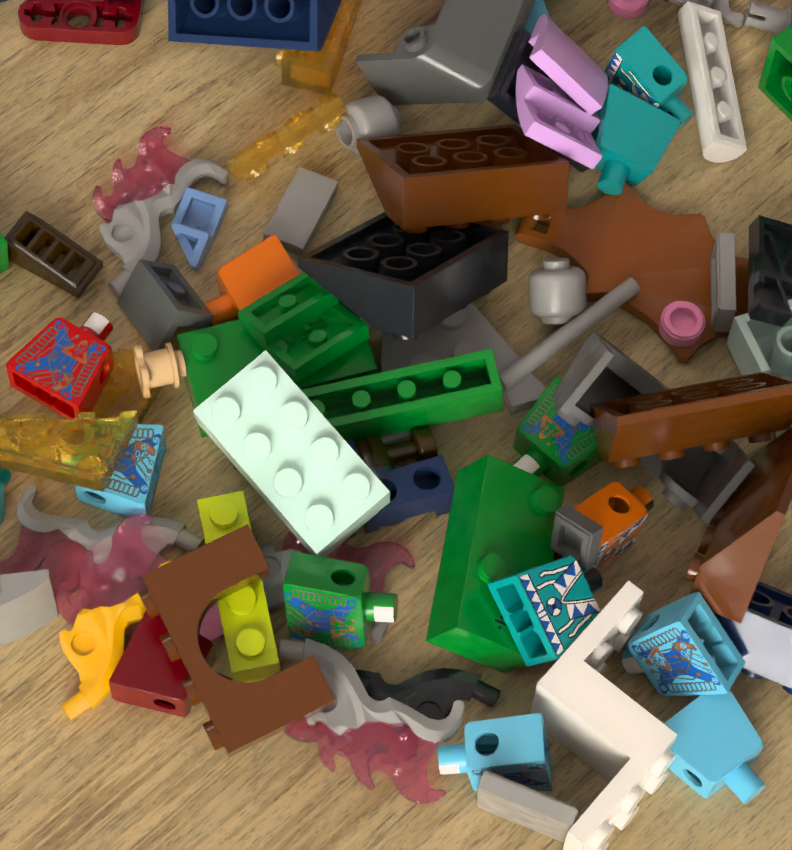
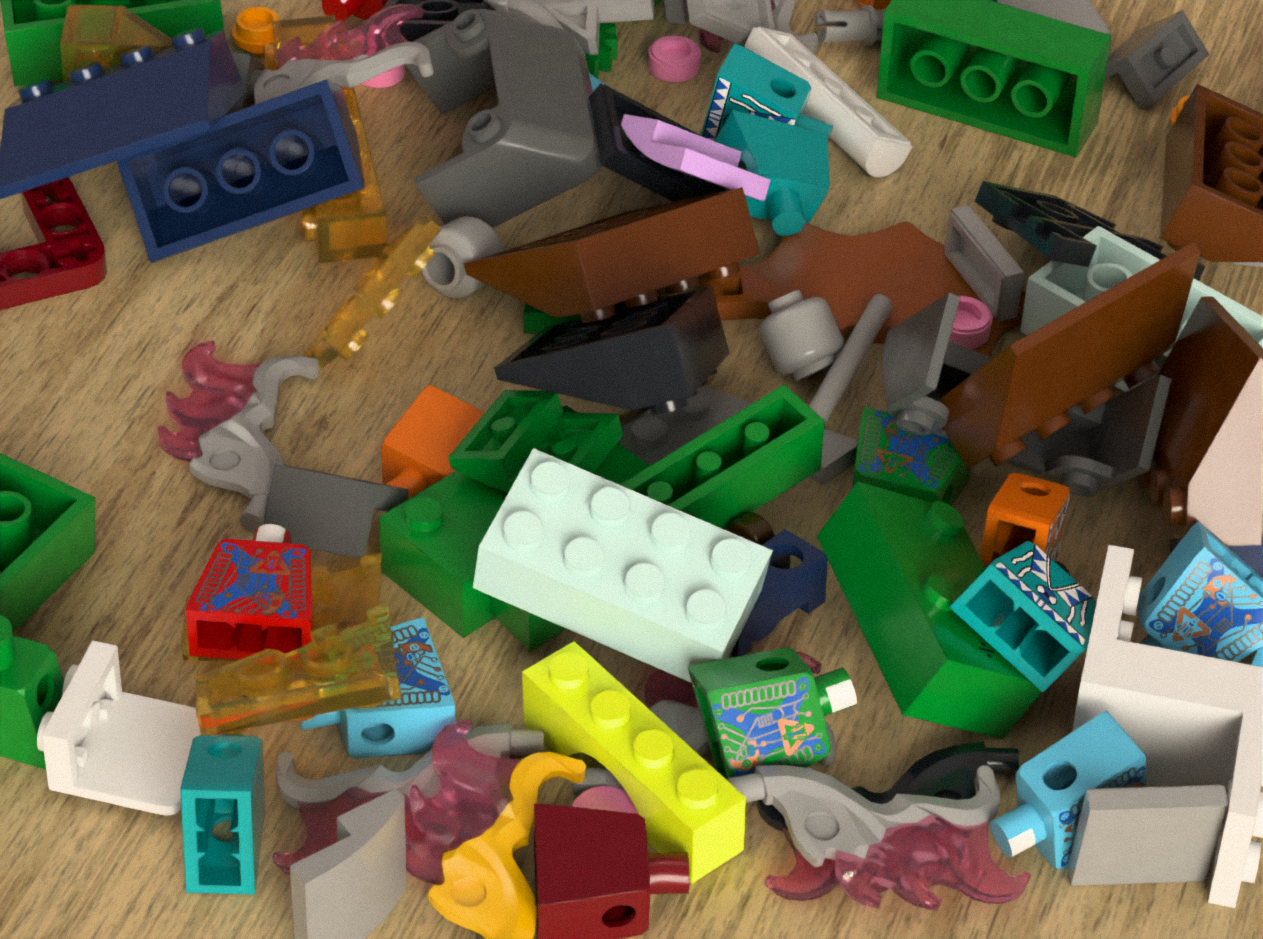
camera: 25 degrees left, 20 degrees down
(28, 239) = (129, 510): dark brown slope -> none
(158, 368) = (375, 561): tan brick -> none
(198, 224) = (312, 423): medium blue slope -> none
(238, 711) = (722, 863): reddish brown arch -> none
(301, 210) = (432, 357): light grey tile -> none
(568, 65) = (671, 103): lavender slope -> none
(576, 536) = (1011, 522): dark grey tile -> none

